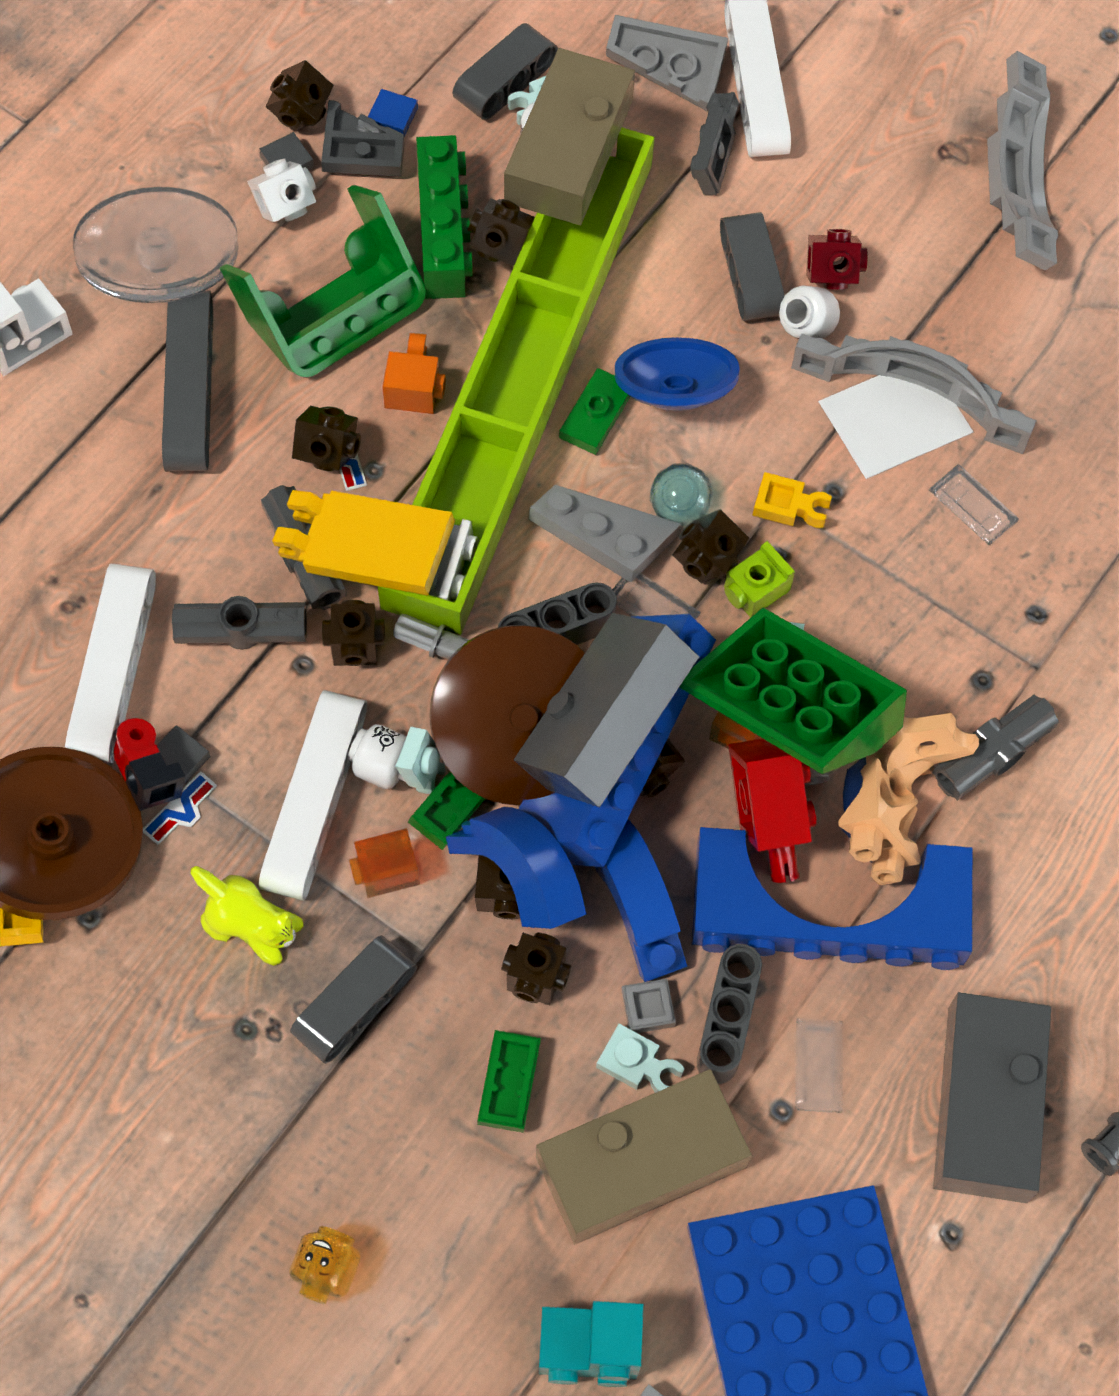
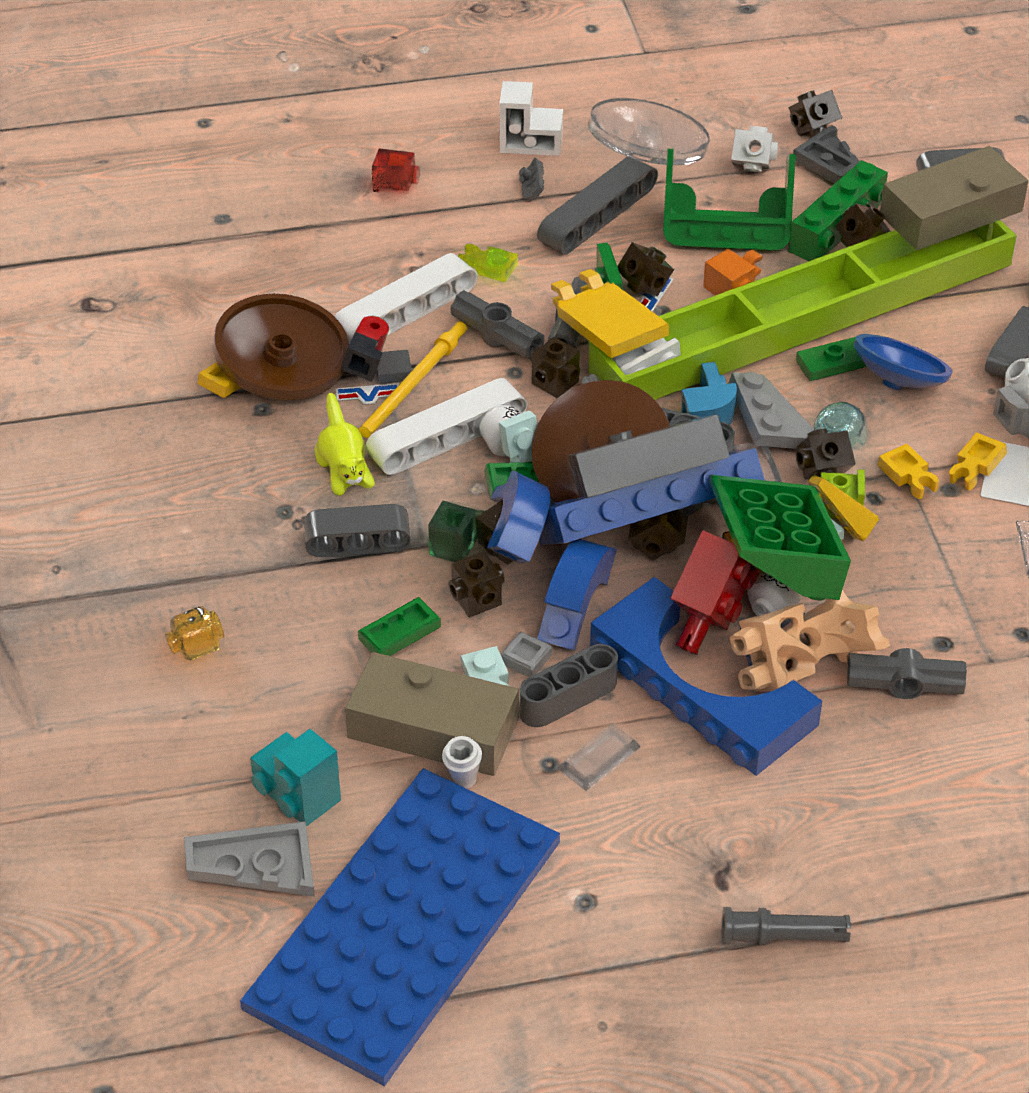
camera: 45 degrees right, 20 degrees down
(86, 395) = (532, 179): none -> dark grey piece
(148, 538) = (492, 263): none -> clear neon green plate
(206, 688) = (442, 347): none -> yellow bar
(287, 148) = (785, 140): dark grey tile -> none
(287, 467) = (607, 266): none -> green plate
(385, 863) = (448, 479): clear orange brick -> none
(394, 111) = (871, 152): blue tile -> none
(453, 915) = (453, 530): none -> clear green slope
(545, 561) = (711, 397): none -> dark azure brick
(742, 1185) = (462, 760): none -> white cone
(797, 601) = (850, 513): none -> yellow slope
(836, 437) = (977, 456): none -> yellow plate
(993, 1098) = (688, 841): dark grey brick -> none

